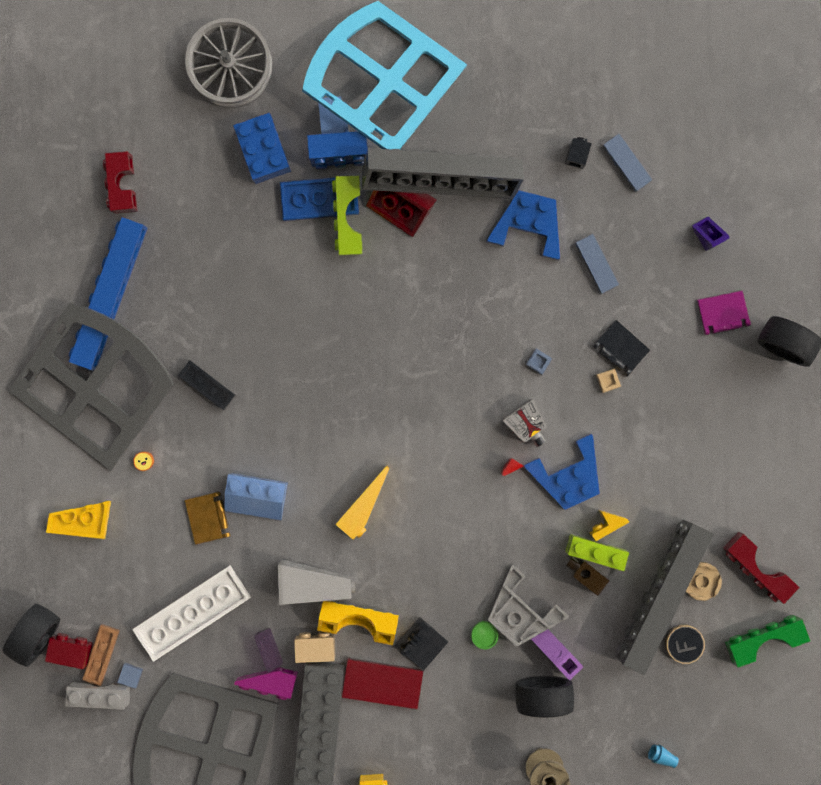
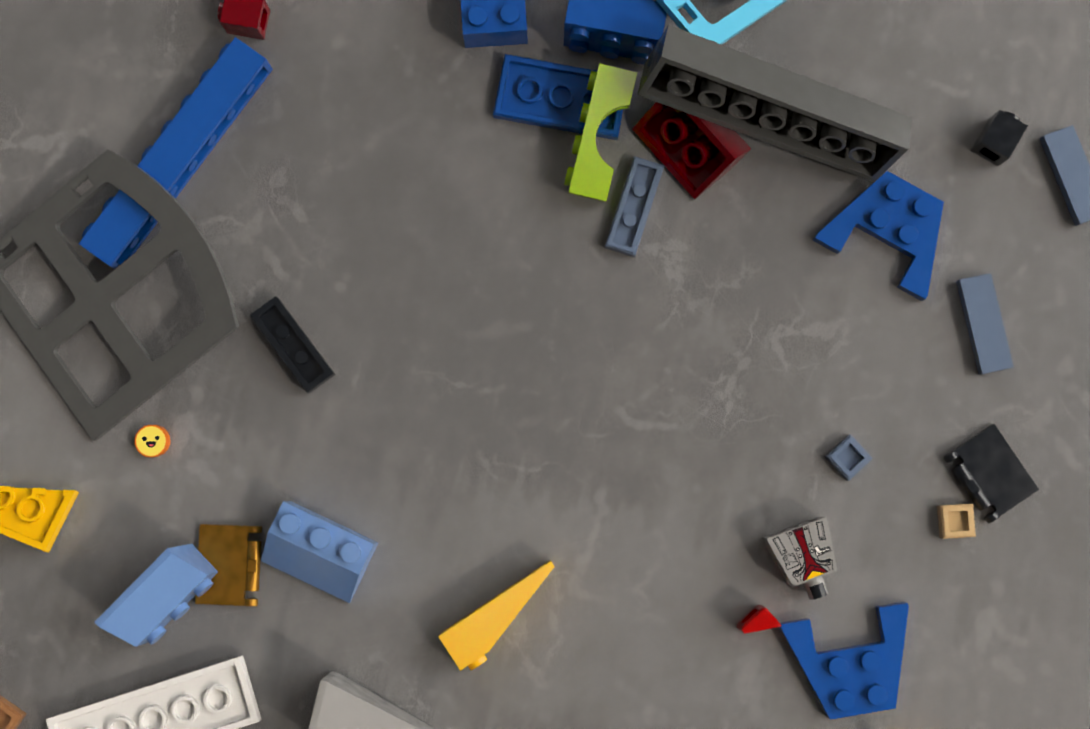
camera: 10 degrees right, 5 degrees down
(175, 545) = (158, 596): none -> medium blue slope
(379, 251) = (634, 206): none -> sand blue tile

